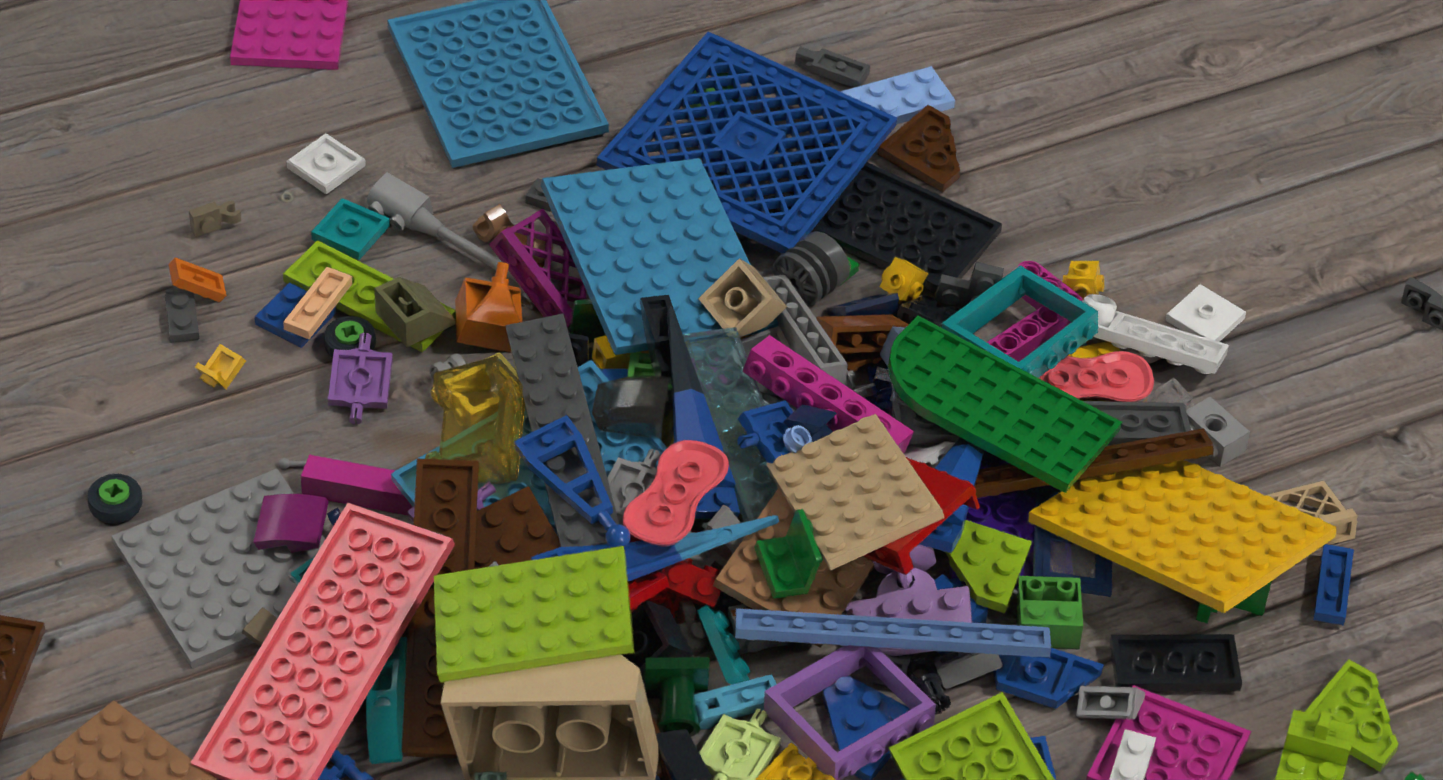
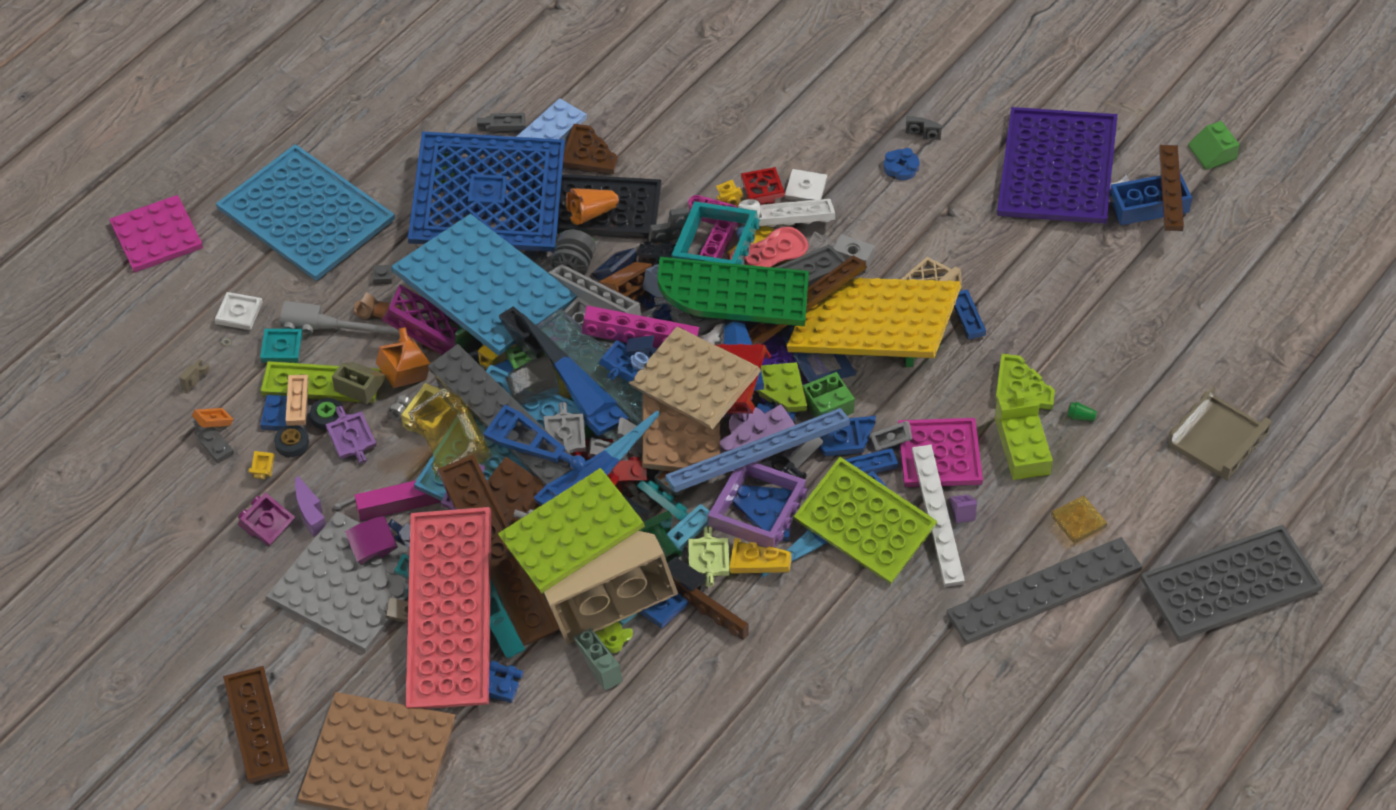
camera: 25 degrees left, 5 degrees up
(115, 498) = (247, 578): black wheel -> none
(176, 437) = (265, 519): none -> magenta plate
(242, 446) = (309, 507): none -> medium lavender slope
(280, 353) = (296, 435): none -> black wheel
(669, 504) = (593, 430): coral plate -> none
(742, 299) = (553, 291): tan slope -> none
(790, 560) = (680, 432): green bracket -> none
(877, 212) = (589, 203): none -> orange cone
(903, 279) = (633, 235): yellow brick -> none
(1058, 727) = (876, 461): none -> blue plate
(1139, 288) = (763, 185): none -> red piece
(1176, 662) = (911, 397): black plate -> none
(1377, 332) = (904, 156): none -> blue plate

